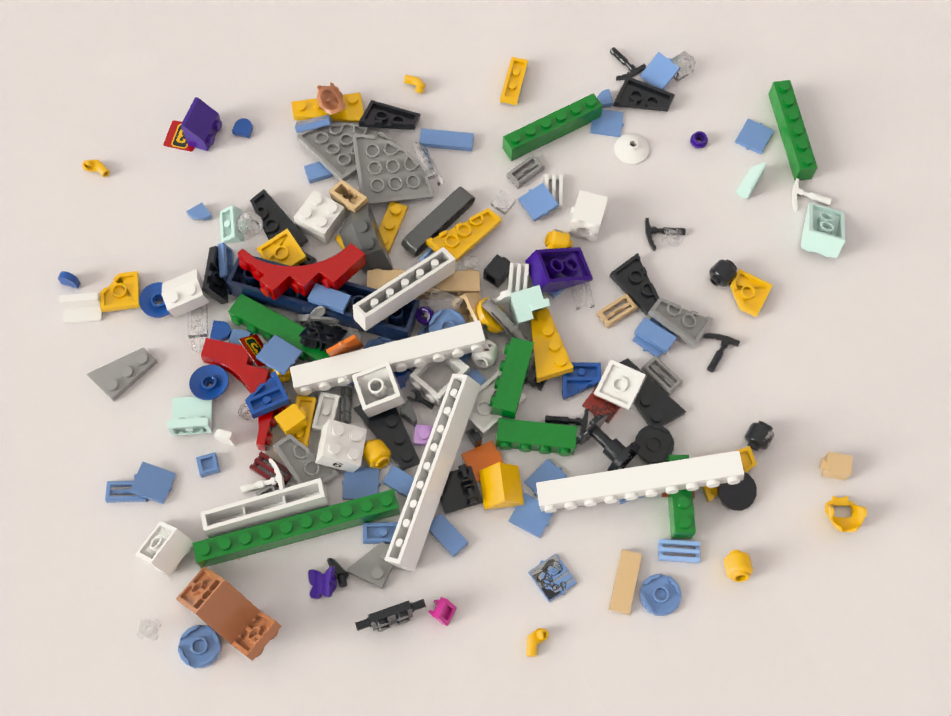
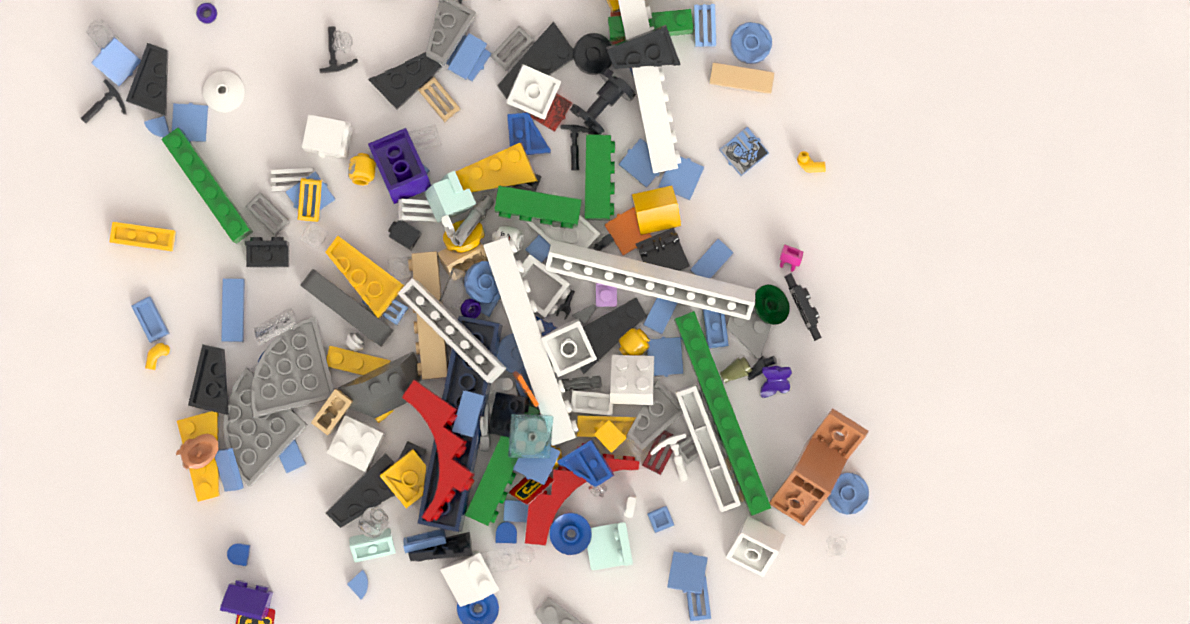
camera: 95 degrees left, 20 degrees up
(299, 345) = (530, 436): none -> clear light blue piece
(338, 548) = (736, 370): none -> olive cone
(403, 592) = (771, 304): none -> dark green dish
(407, 224) = (355, 341): none -> white plate
(445, 82) = (150, 319): none -> medium blue tile
(490, 166) = (267, 253): none -> black bracket
(534, 202) = (311, 182): none -> yellow tile
(655, 476) = (647, 49): none -> black wing

